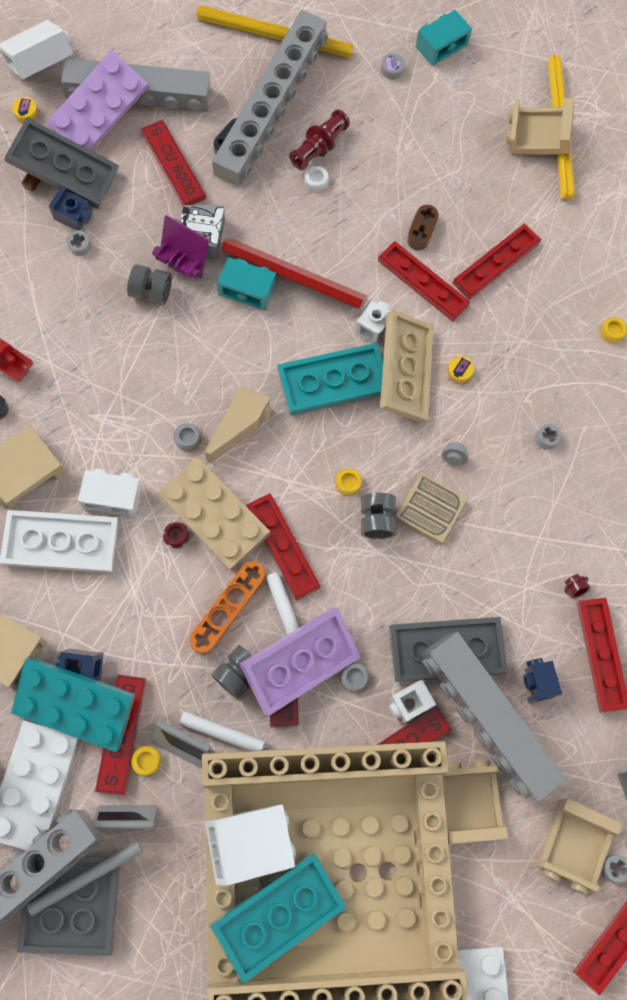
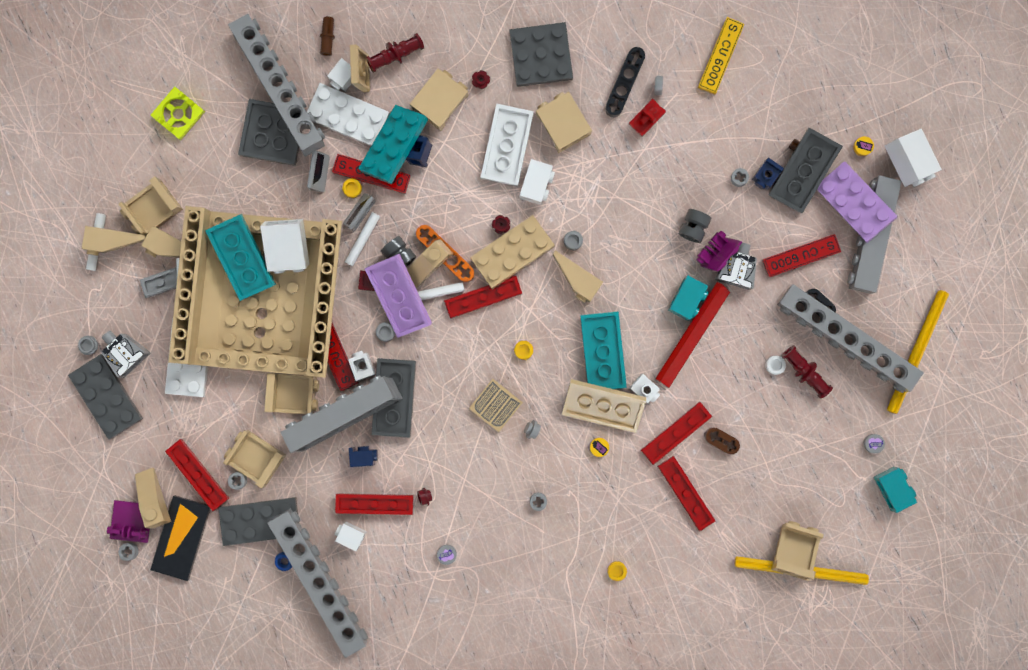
camera: 105 degrees right, 15 degrees up
(84, 878) = (284, 143): light grey bar -> none
(244, 622) = (429, 262): none -> tan slope
(378, 515) = (486, 363): dark grey wheel -> none

